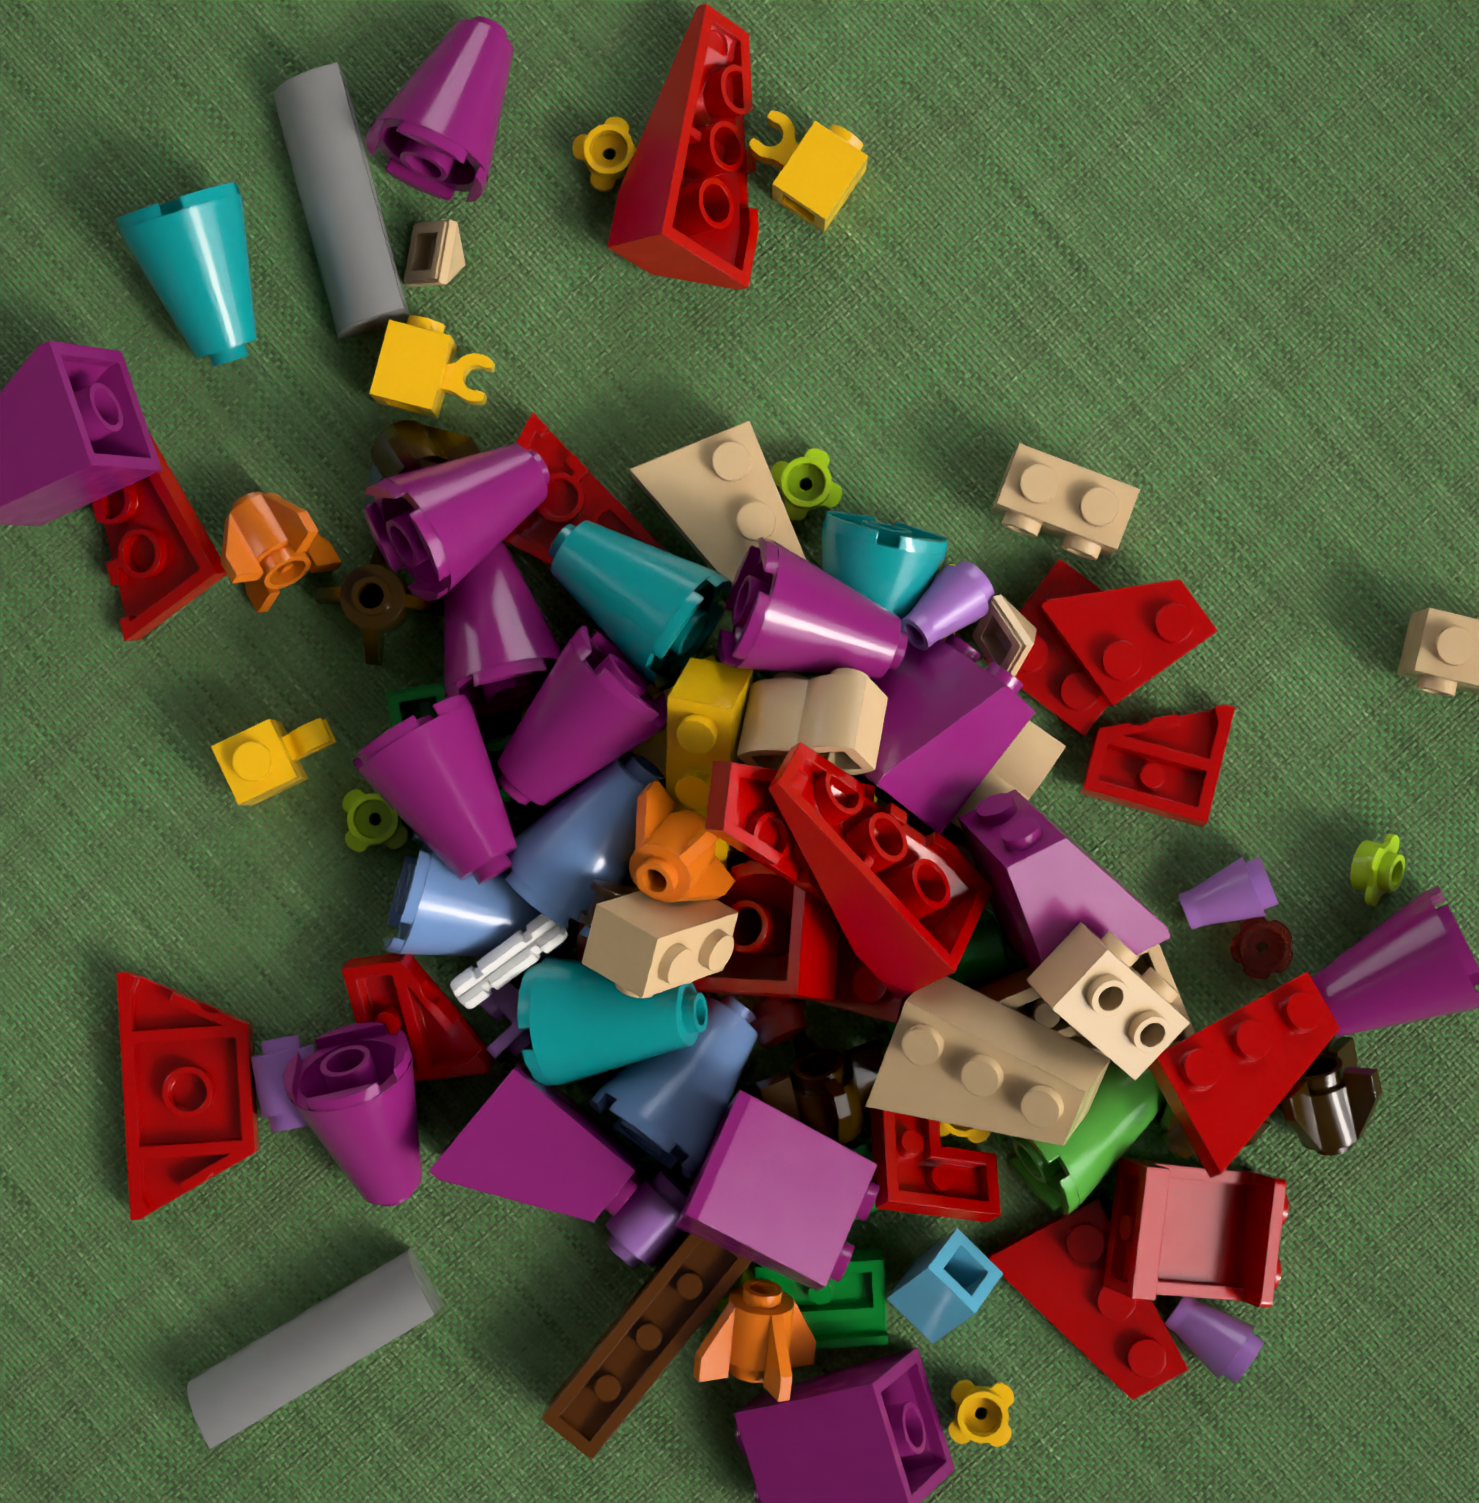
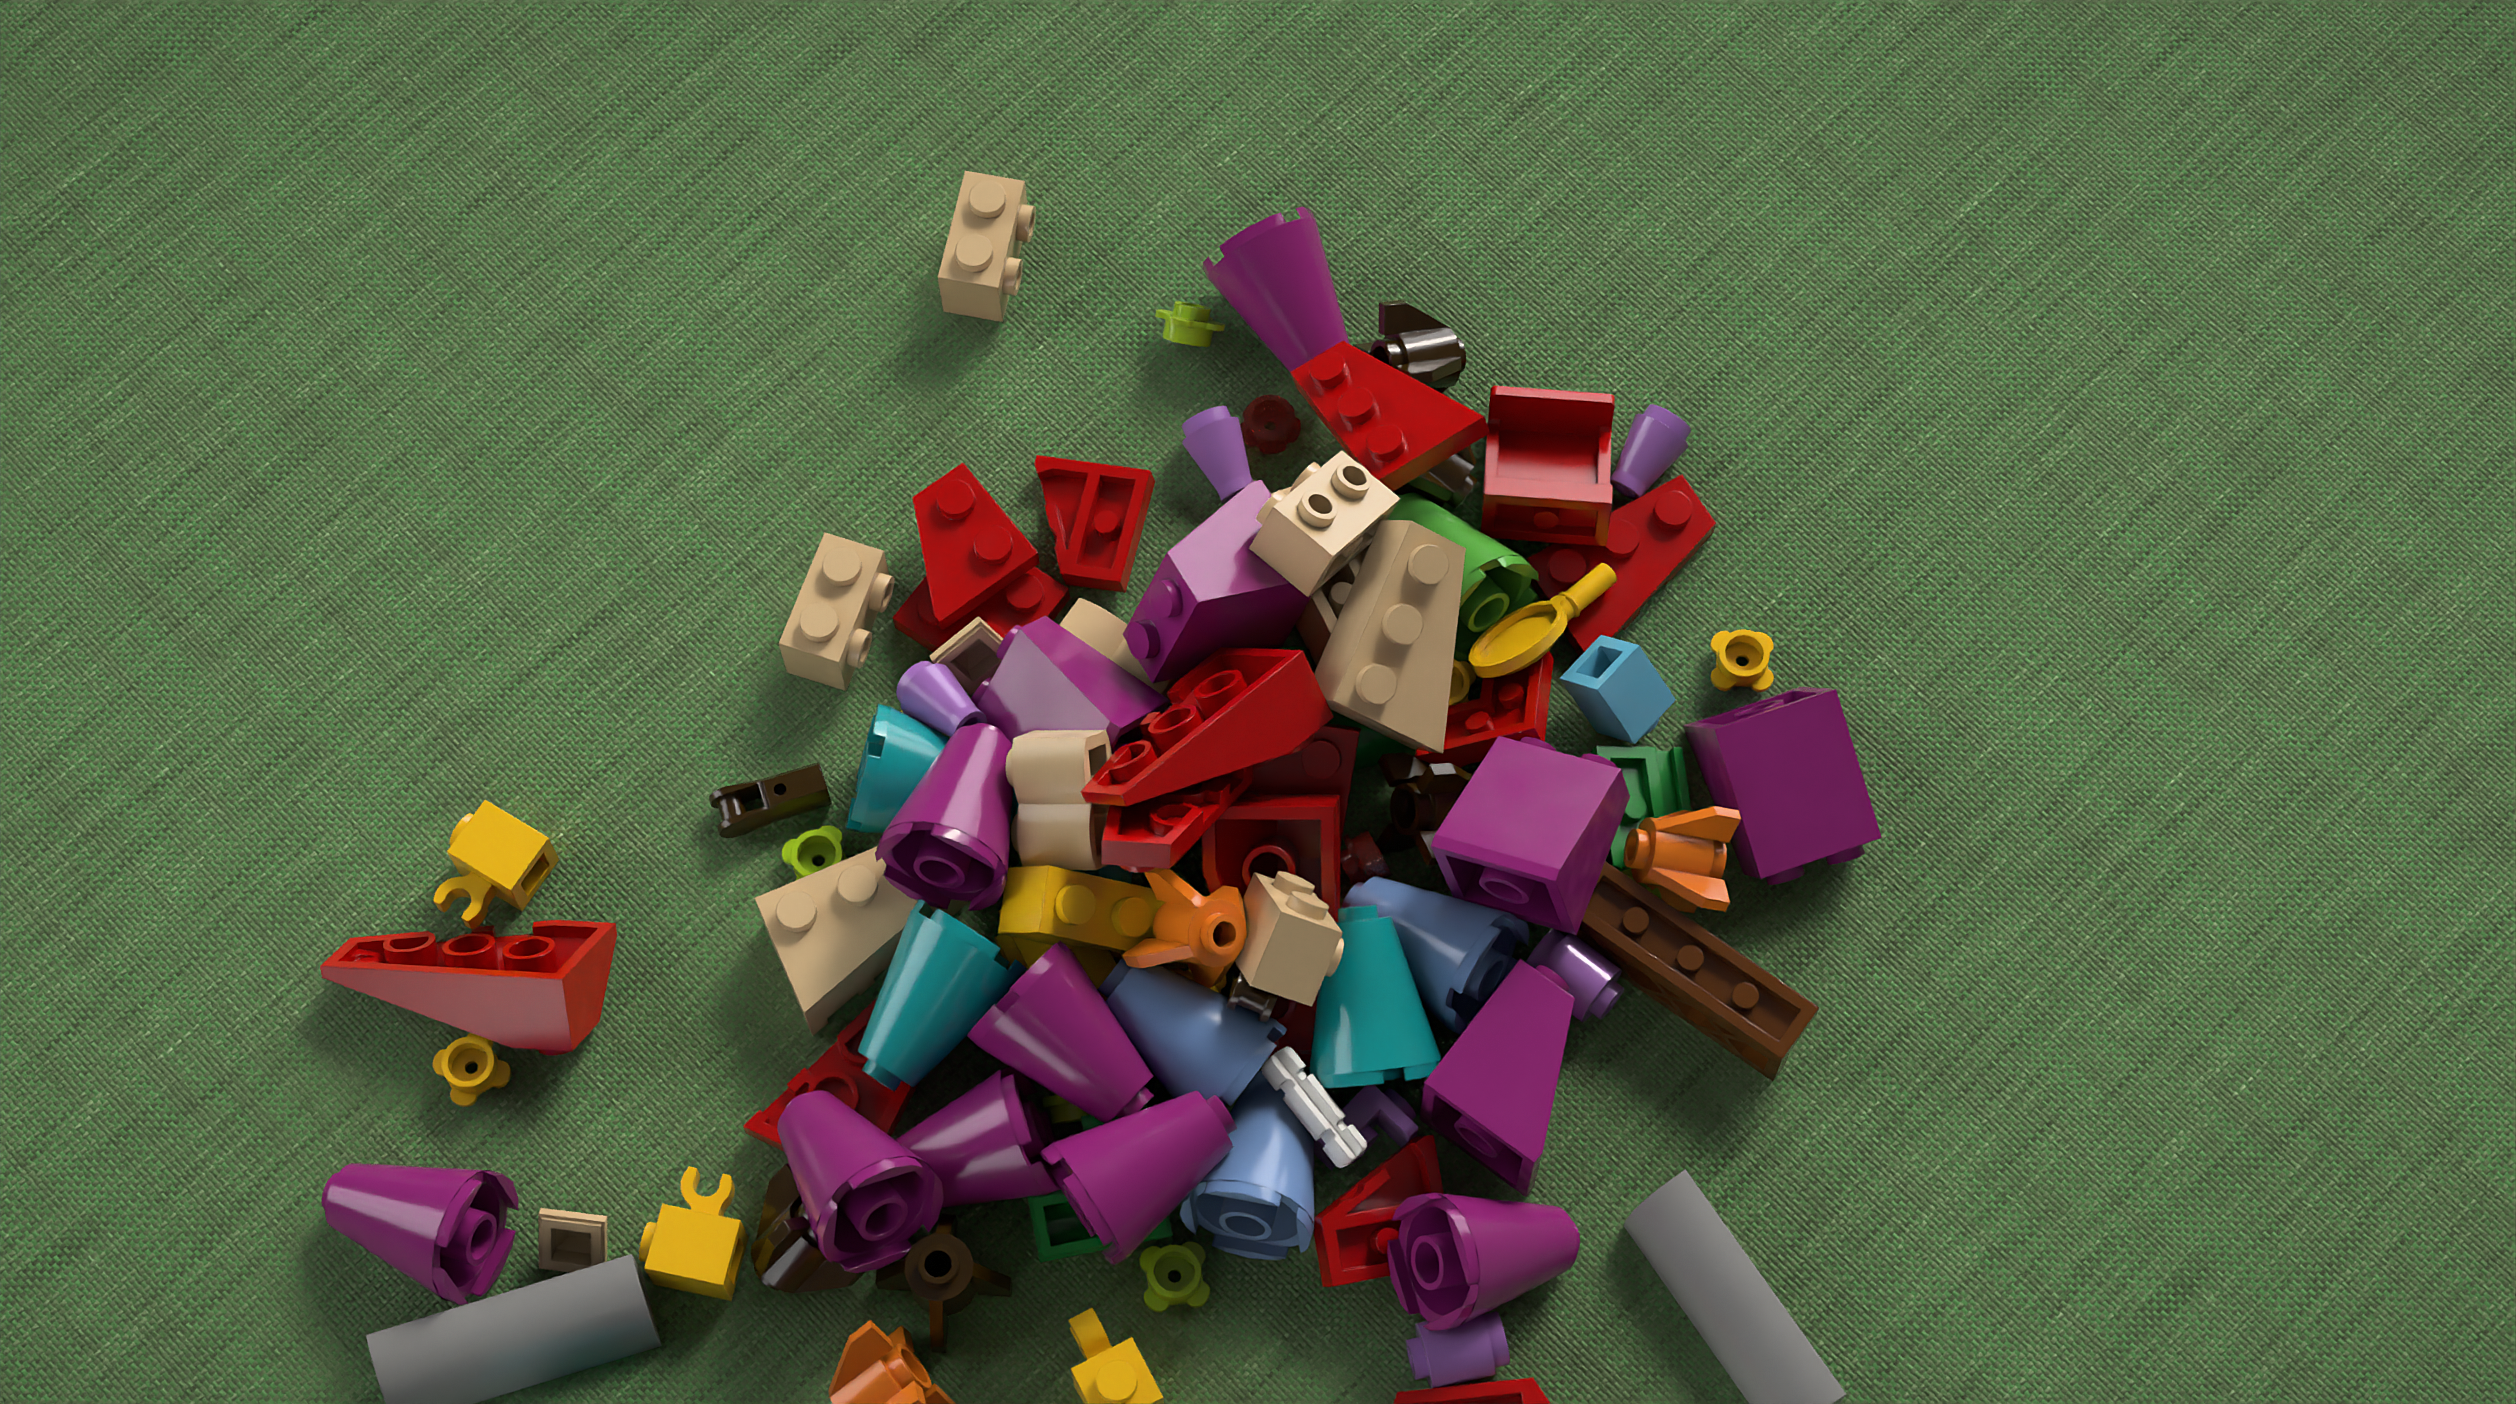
camera: 95 degrees left, 20 degrees down
(872, 447) = (782, 794): none -> dark brown bar
(1011, 1205) = (1533, 629): none -> yellow piece

